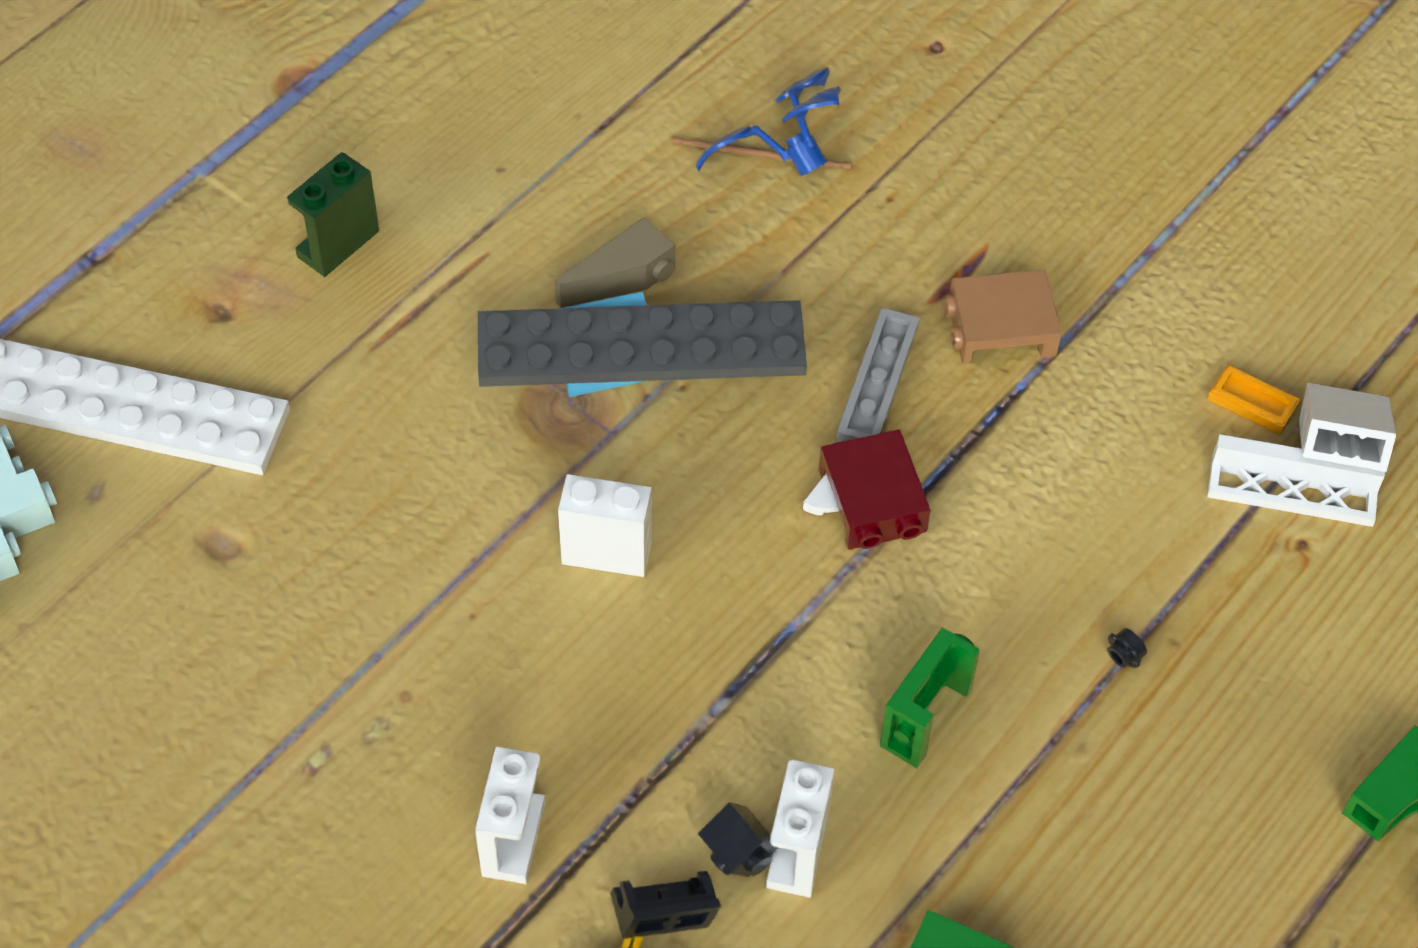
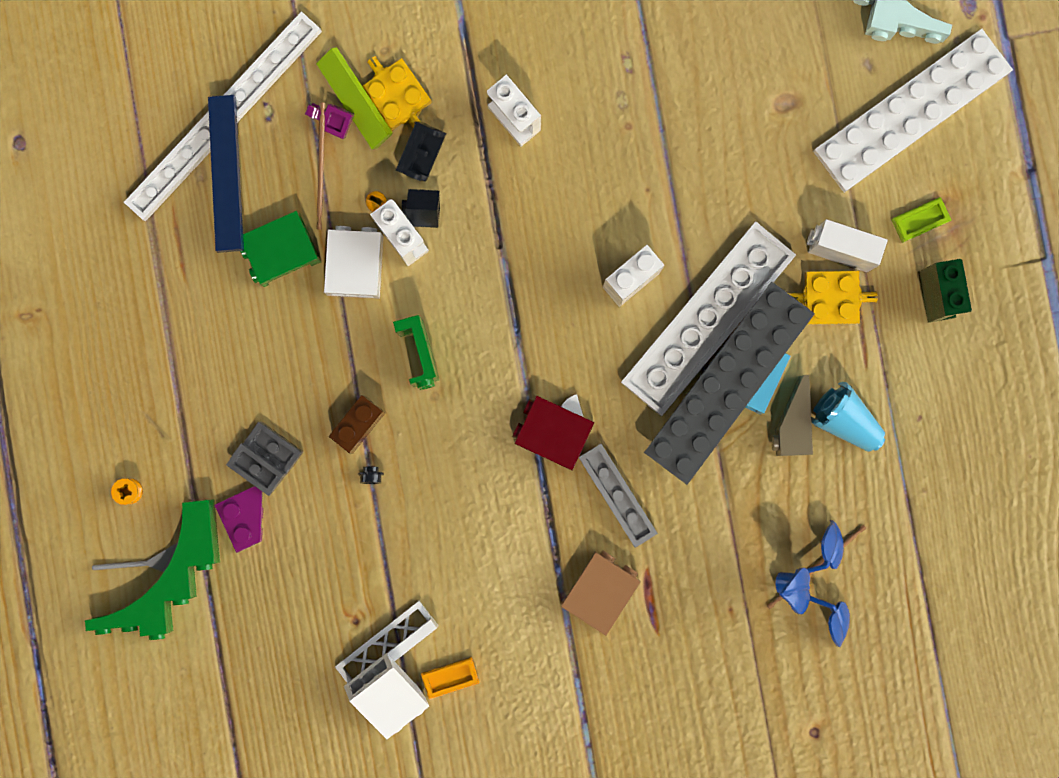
camera: 135 degrees right, 30 degrees up
(257, 310) = (921, 219): none -> lime tile
(362, 342) = (846, 245): none -> white brick
(433, 331) = (834, 297): none -> yellow plate
(567, 221) = (848, 418): none -> medium azure cone
(578, 432) = (708, 319): none -> white plate
(772, 922) = (372, 206): none -> light orange hinge
(889, 872) = (353, 262): none -> white brick
(1083, 705) = (357, 424): none -> reddish brown brick
(1233, 785) = (264, 458): none -> flat silver slope
(1324, 757) = (243, 518): none -> magenta wing

